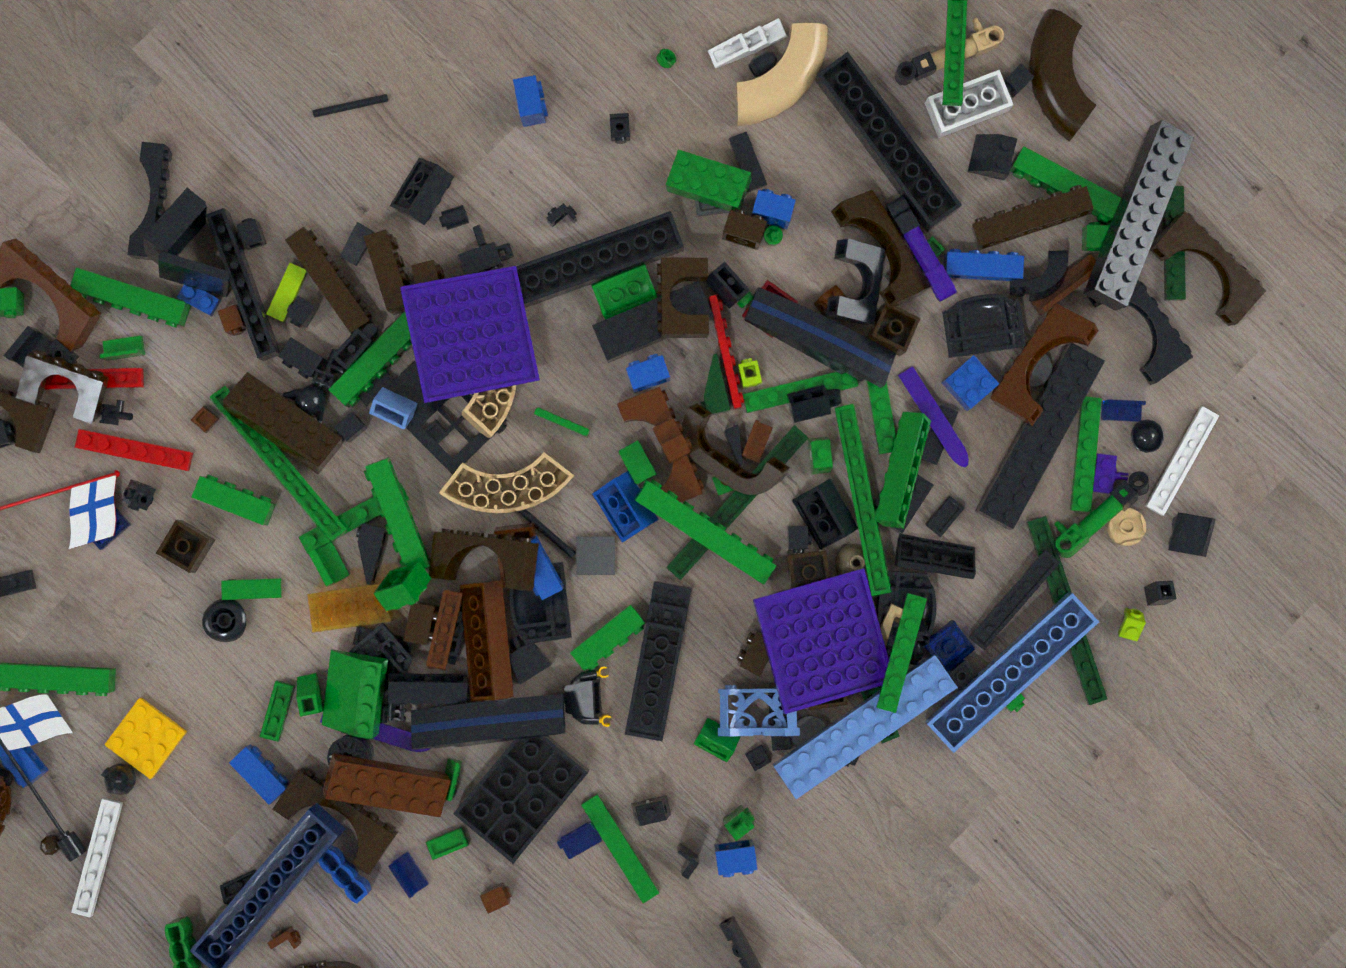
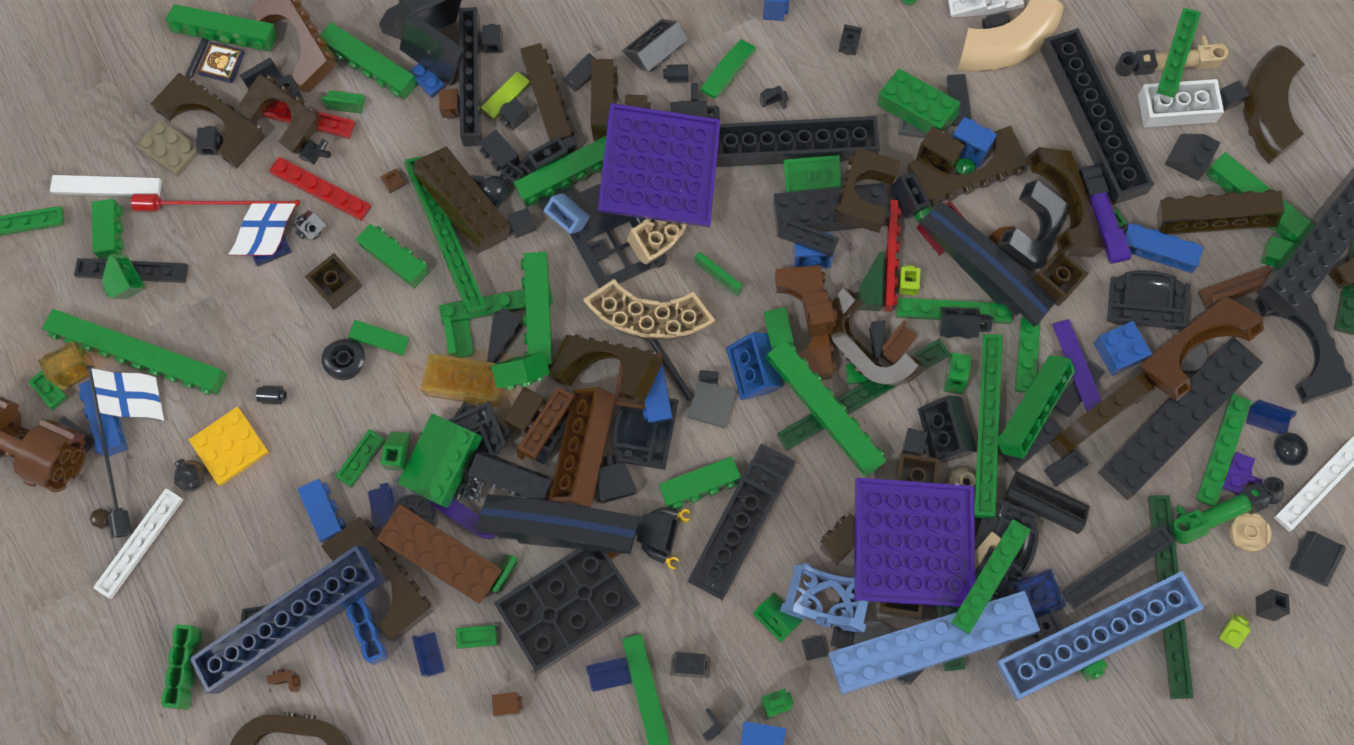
camera: 25 degrees right, 15 degrees down
(167, 677) = (271, 395): none -> black brick
(314, 750) = (381, 504): none -> clear blue panel
(504, 197) = (727, 69): none -> green slope
(584, 530) = (709, 376): none -> black tile
(640, 367) = (808, 237): none -> black tile
(811, 217) = (1006, 161): none -> dark brown arch
(946, 487) = (1101, 414): none -> dark brown arch
(1048, 282) = (1217, 278): black arch -> none

